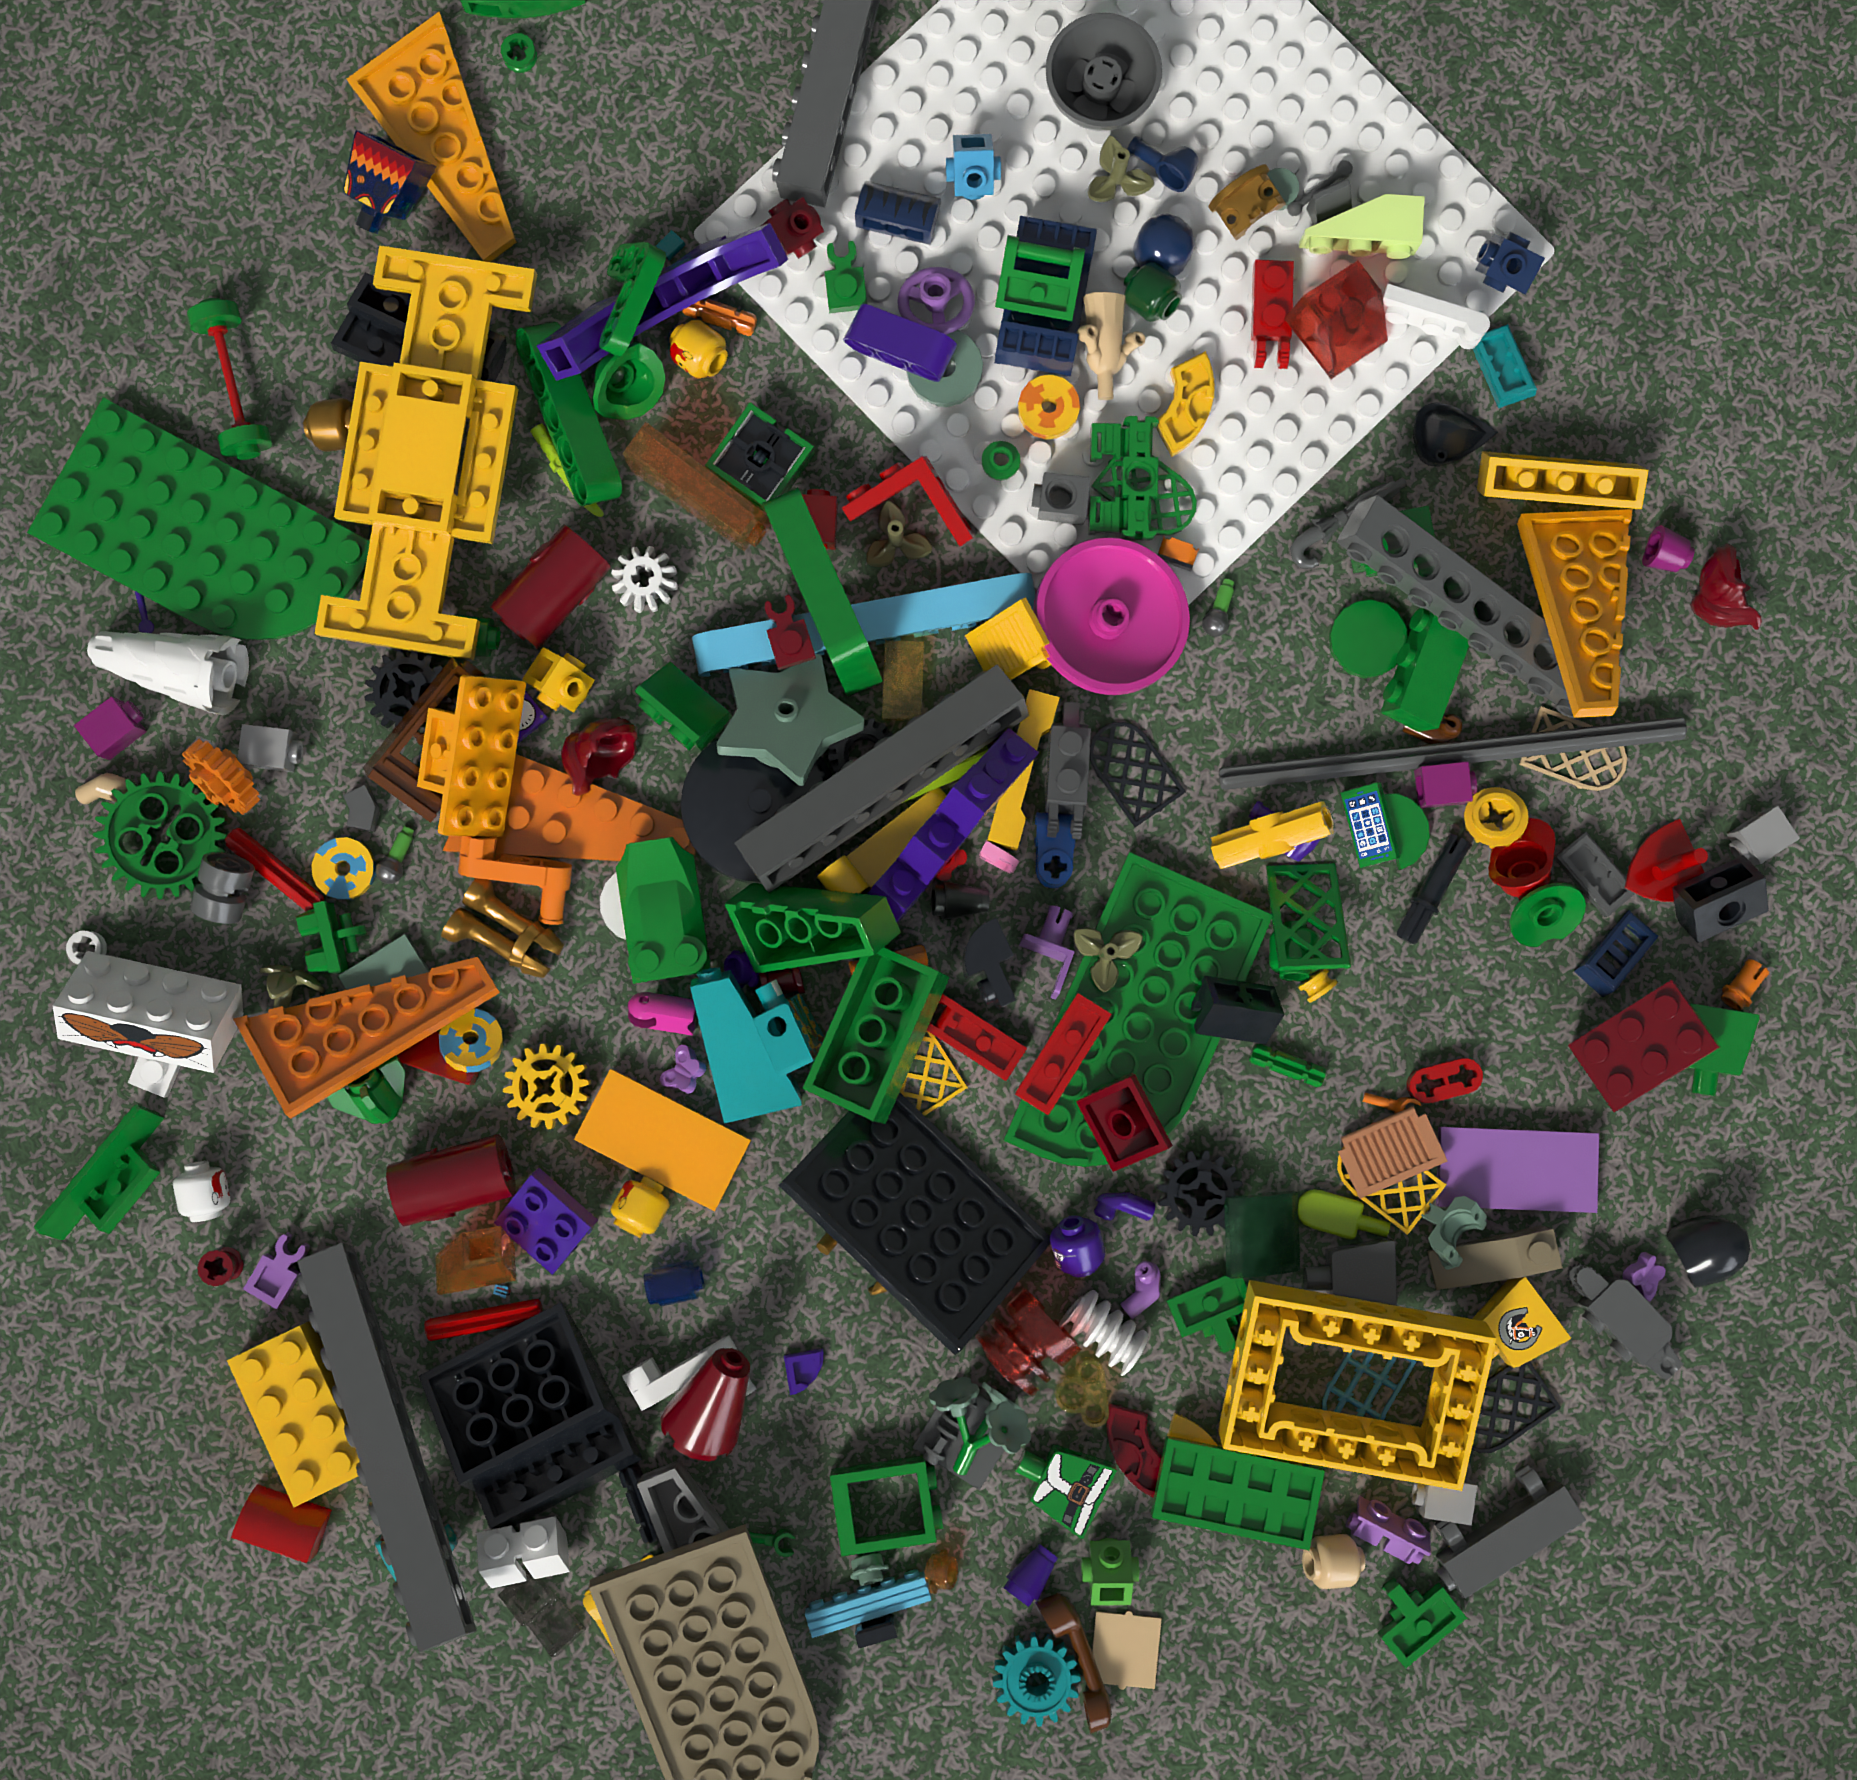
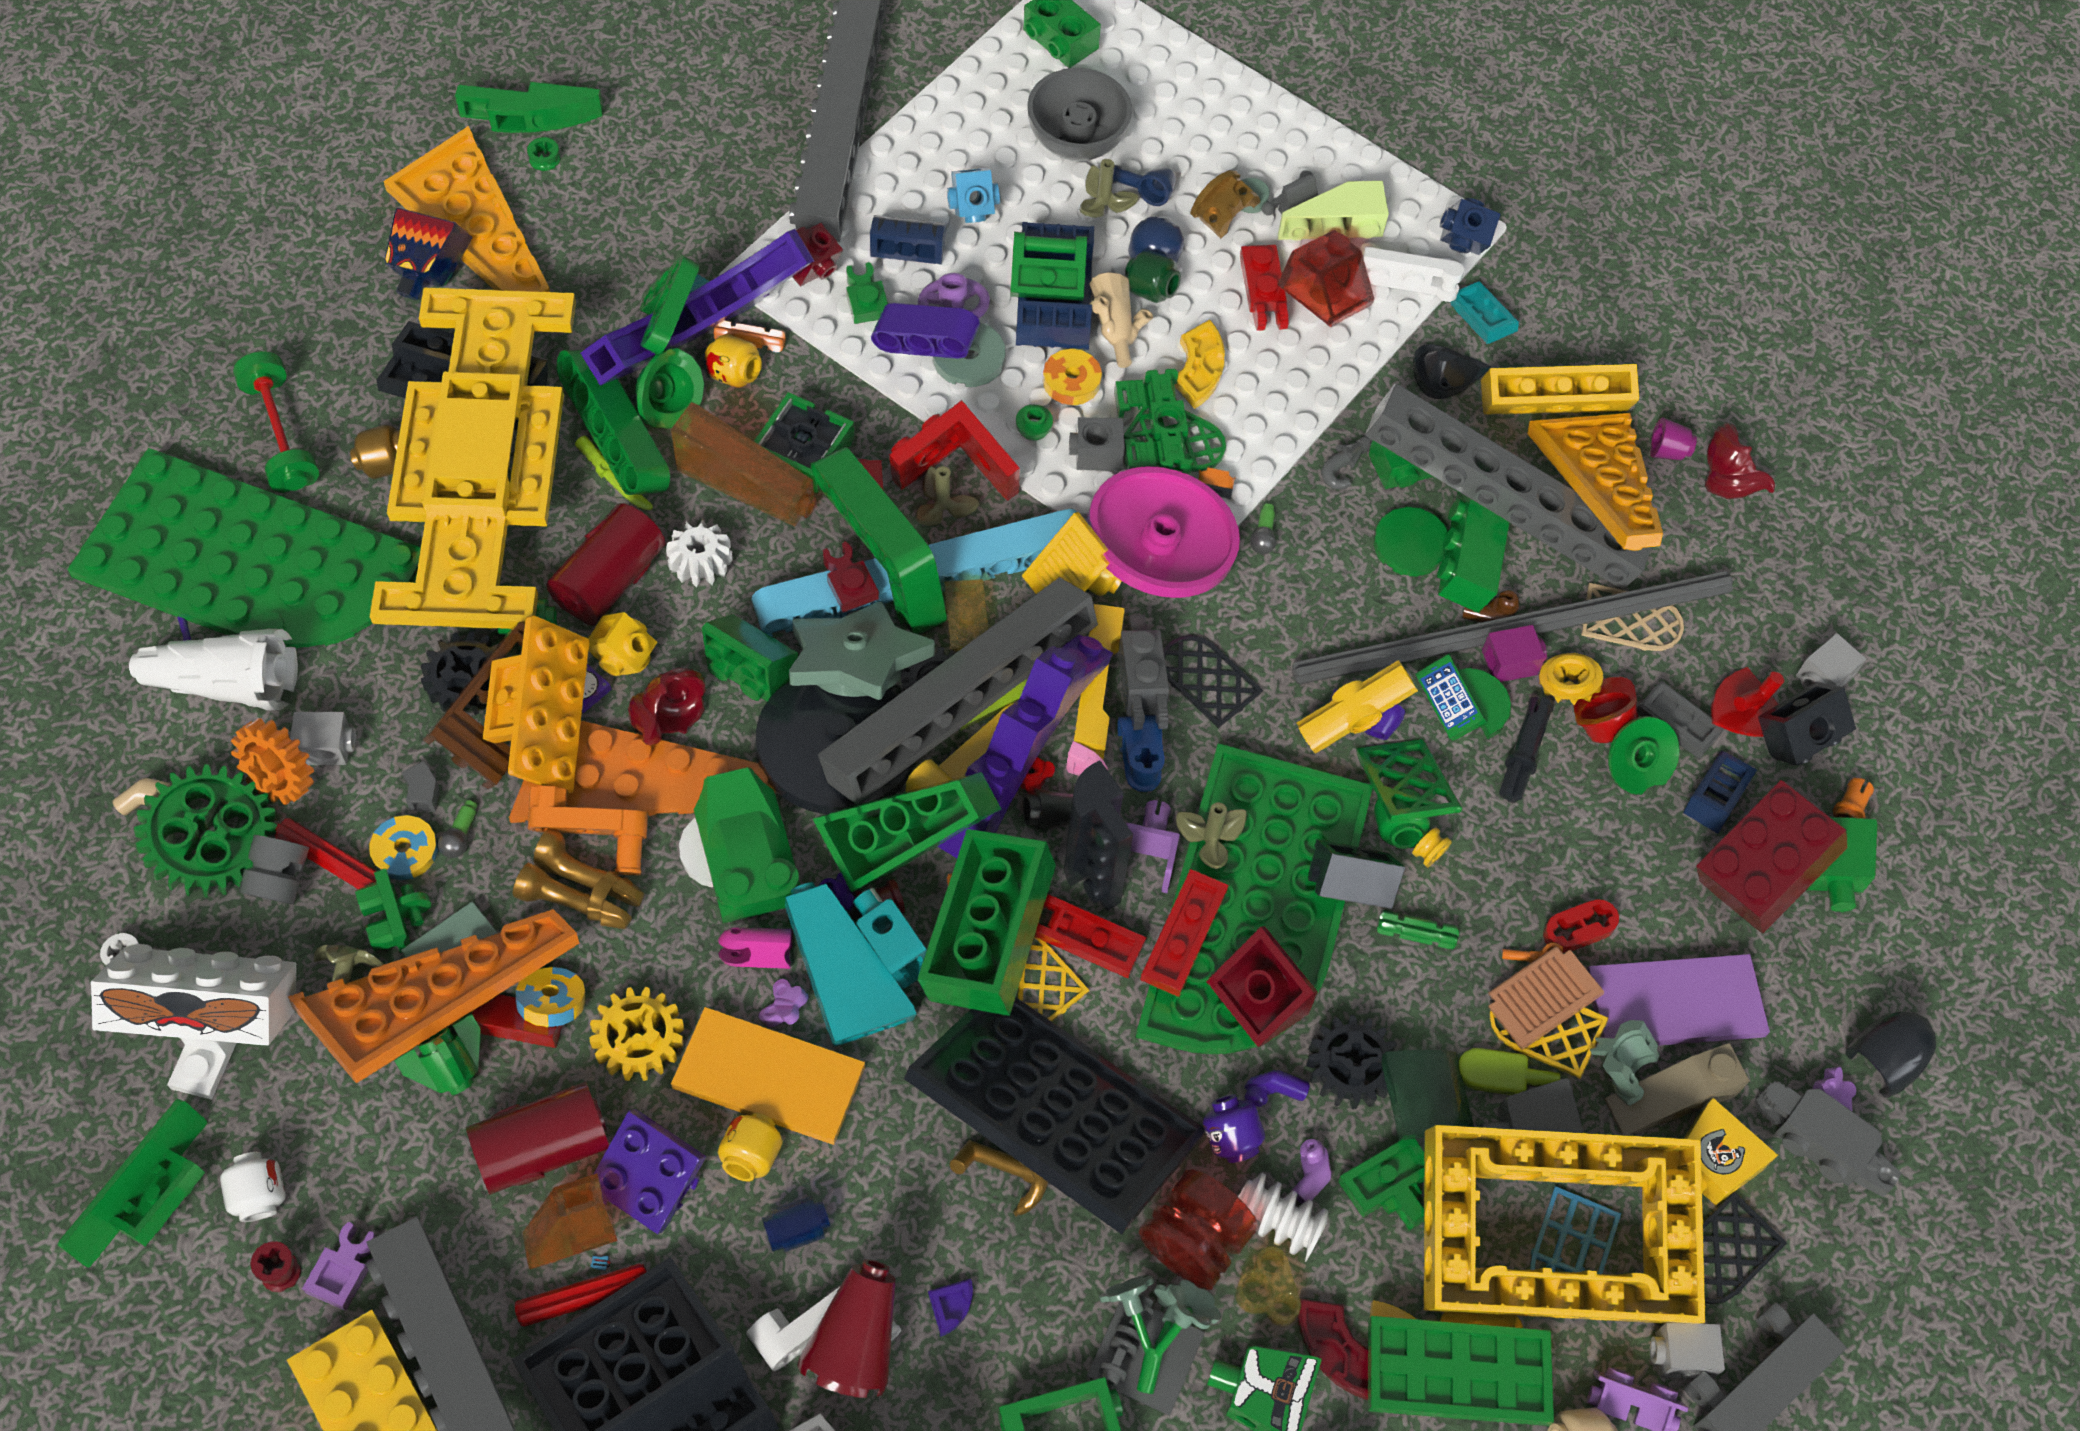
camera: 10 degrees left, 25 degrees down
(111, 727) = (153, 735): magenta brick -> none

